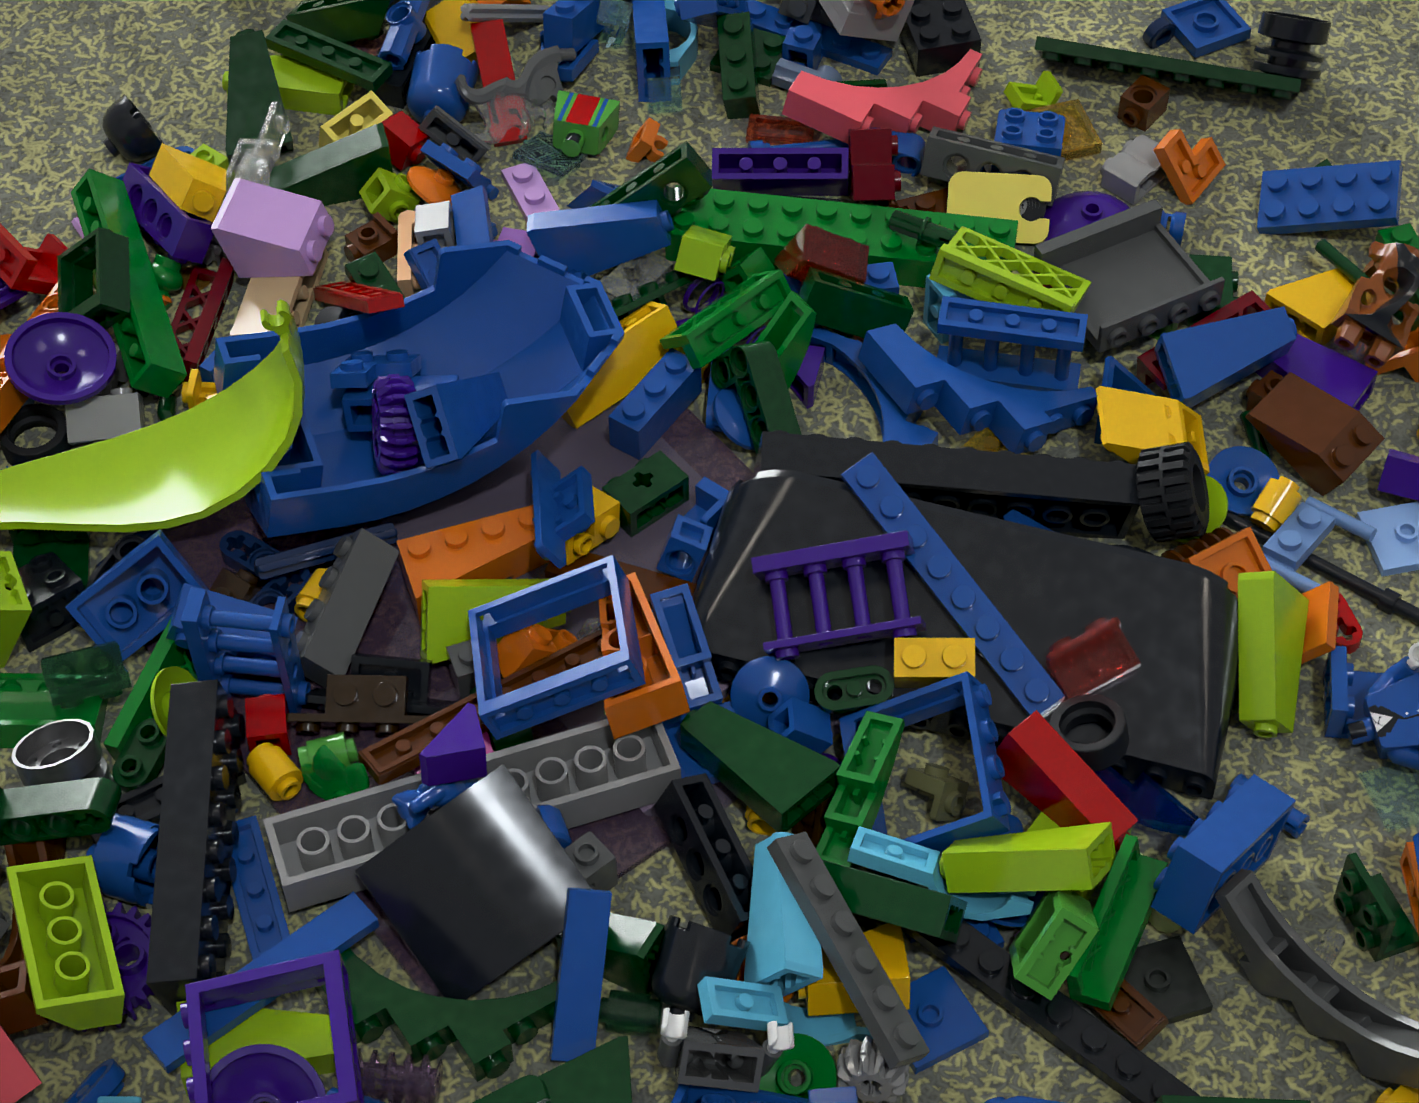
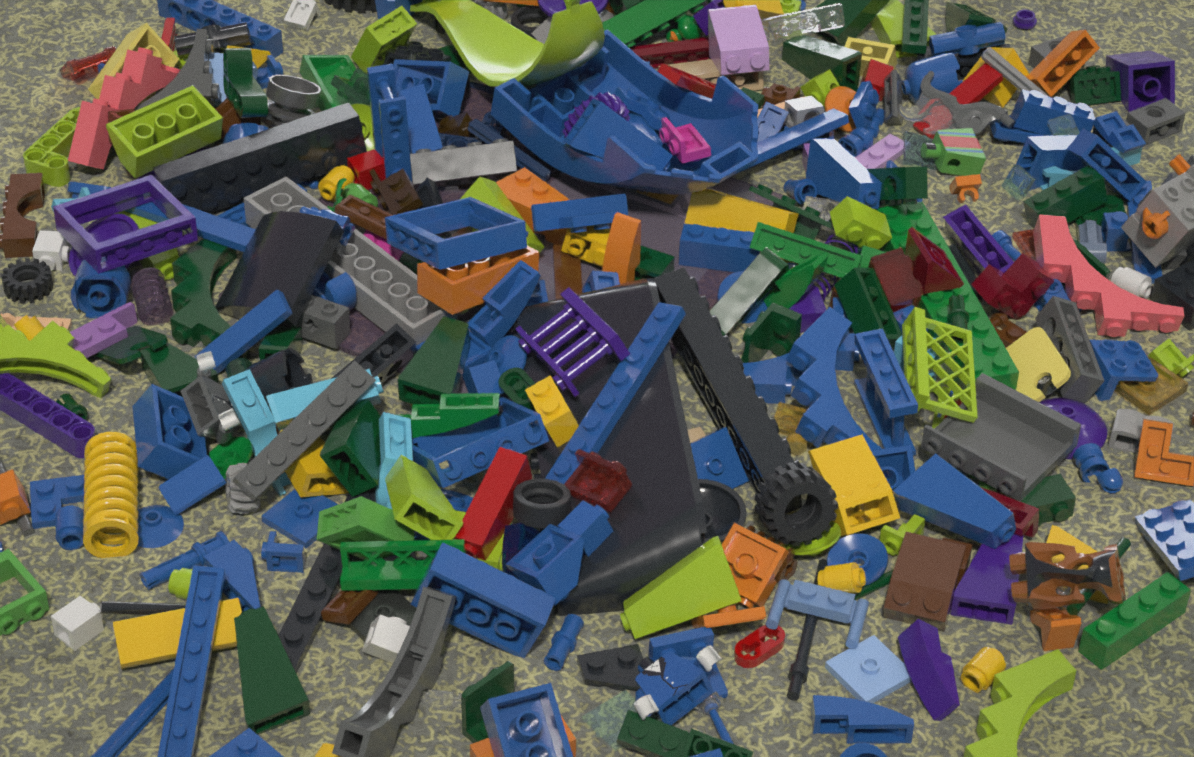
camera: 65 degrees right, 10 degrees down
(456, 751) = (343, 204): dark purple slope -> none
(478, 350) = (684, 141): none -> dark pink bracket
(506, 210) = (857, 141): none -> blue wheel
(649, 497) = (623, 247): none -> orange slope
(830, 216) = (930, 264): none -> dark red slope
(843, 405) = (773, 331): none -> dark green bracket
(896, 71) = (1133, 281): none -> white brick
(1008, 1067) = (283, 556): none -> blue bracket
(1156, 700) = (590, 524): none -> blue brick
(1186, 759) = (550, 562): none -> blue slope
(1197, 223) = (1110, 481): none -> blue hinge
(1219, 983) = (385, 637): none -> white brick
(1220, 424) = (893, 538): none -> lime bracket
(1326, 769) = (611, 667): none -> black wing

